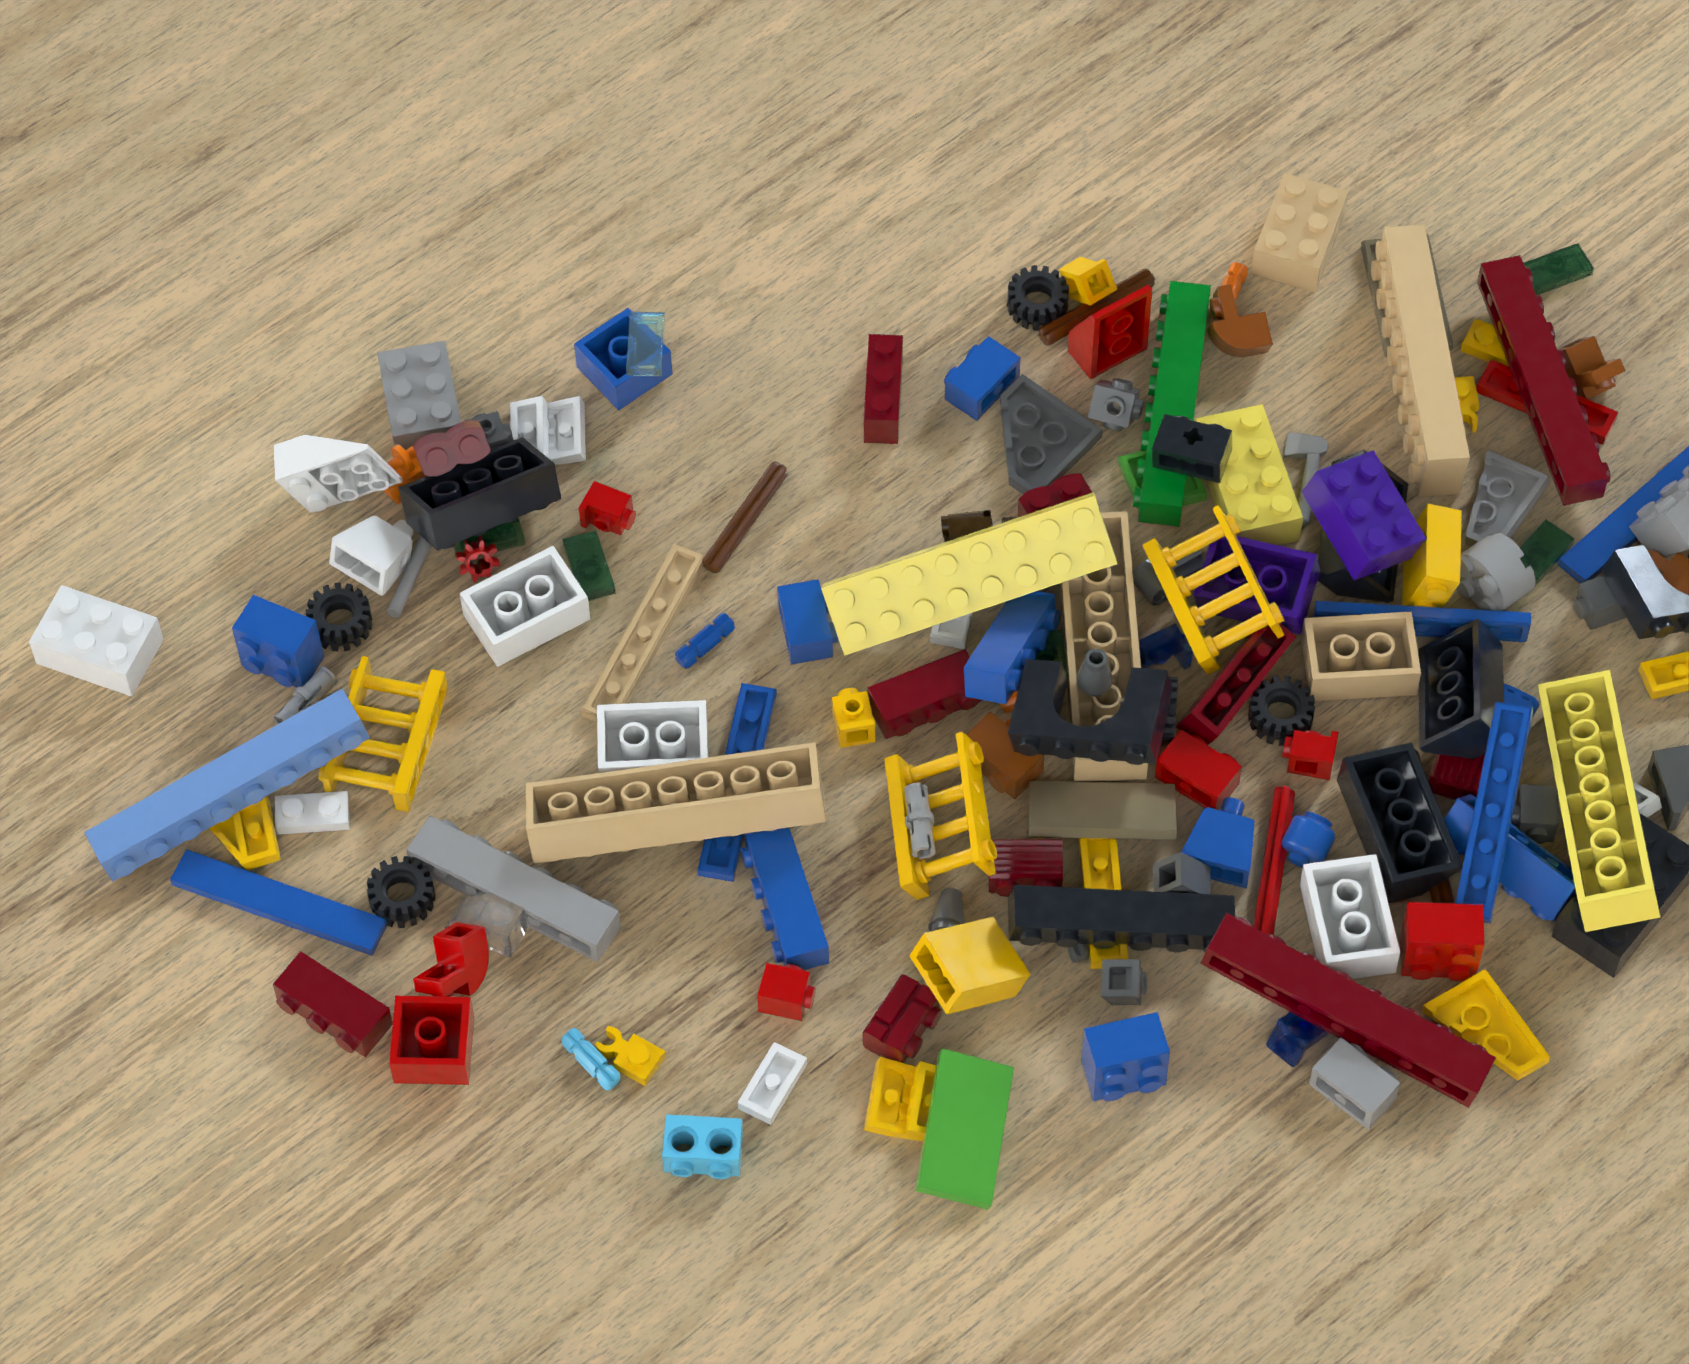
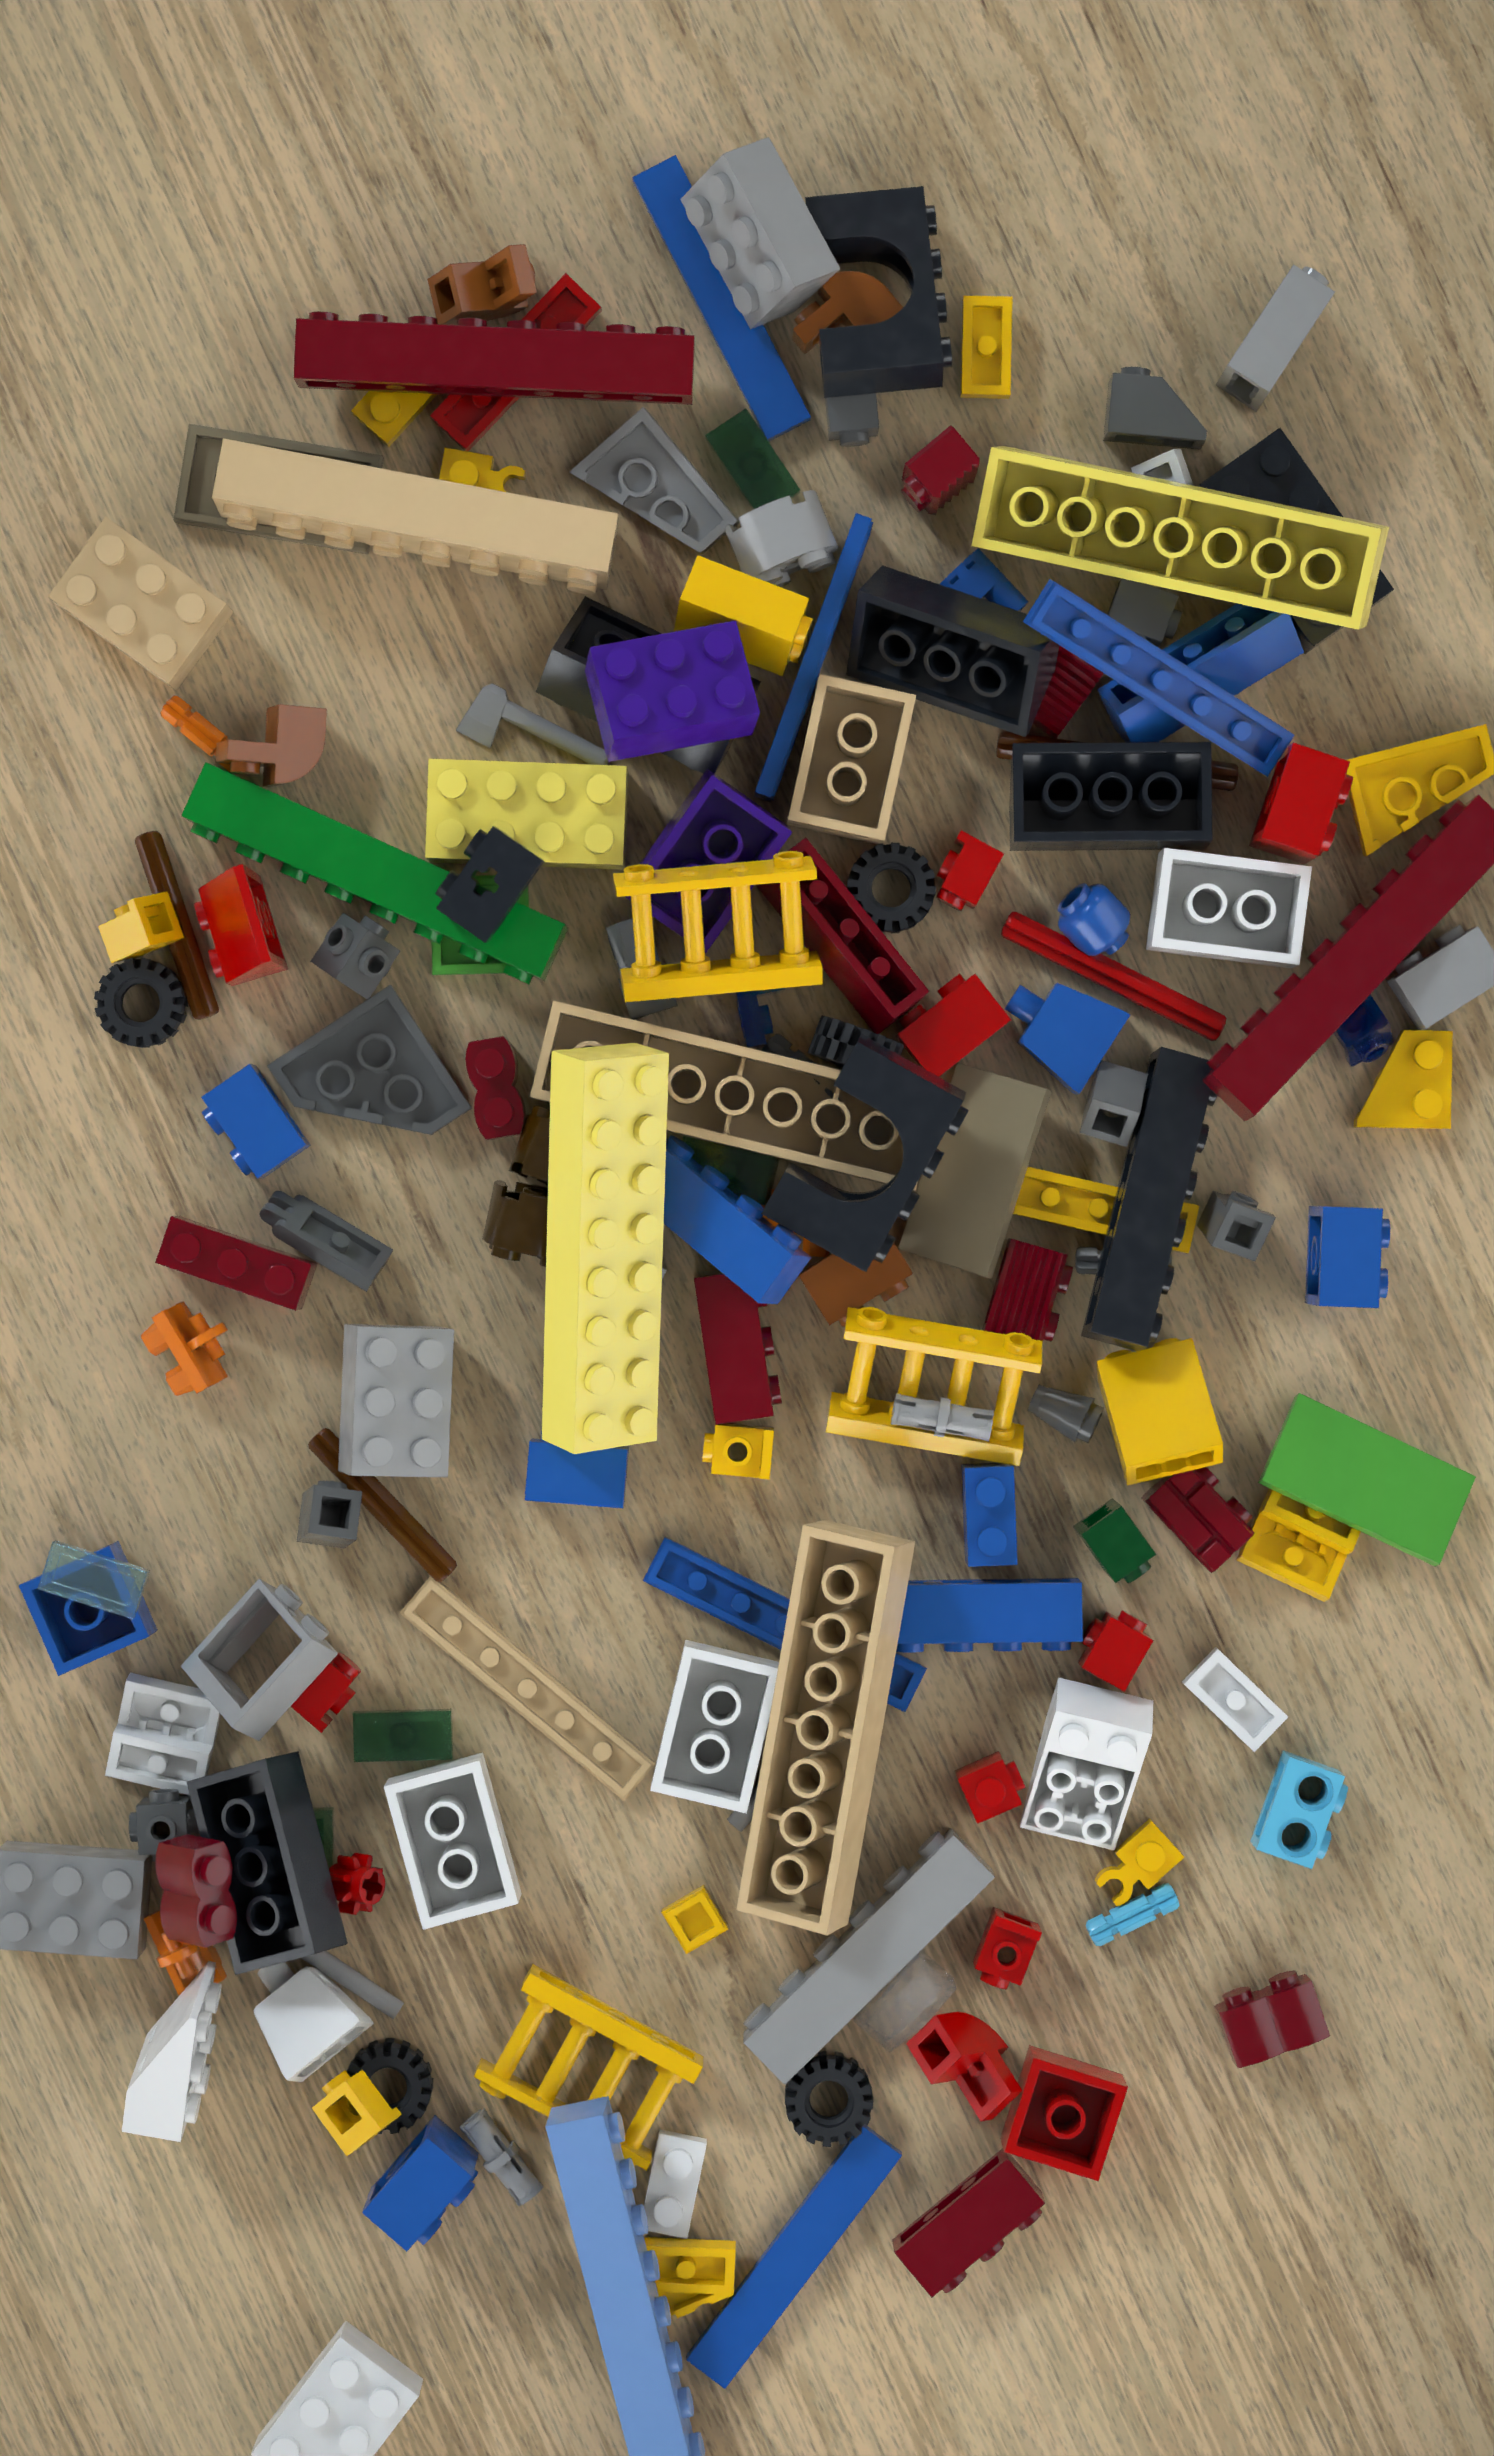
camera: 75 degrees left, 30 degrees up
(319, 585) = (354, 2110): none -> yellow brick
(508, 778) = (694, 1919): none -> yellow tile
(538, 1170) = (1271, 2019): none -> dark red brick
(543, 978) = (1002, 1931): none -> red brick
(618, 459) = (235, 1635): none -> light grey window
(659, 932) = (990, 1786): none -> red brick
(696, 995) = (1087, 1763): none -> white slope
(704, 640) = (561, 1610): blue axle -> none
(729, 478) = (329, 1515): none -> dark grey brick
(818, 377) = (192, 1345): none -> orange hips
(821, 496) = (396, 1400): none -> light grey brick
(858, 881) = (989, 1514): none -> blue brick
(865, 959) = (1115, 1542): none -> dark green brick
(917, 438) = (326, 1238): none -> dark grey hinge
(1095, 673) = (796, 1140): dark grey cone -> none
(1268, 1086) = (1413, 1084): none -> yellow wing
(1559, 268) = (297, 267): clear green plate -> none
(1579, 650) = (939, 471): none -> dark red brick

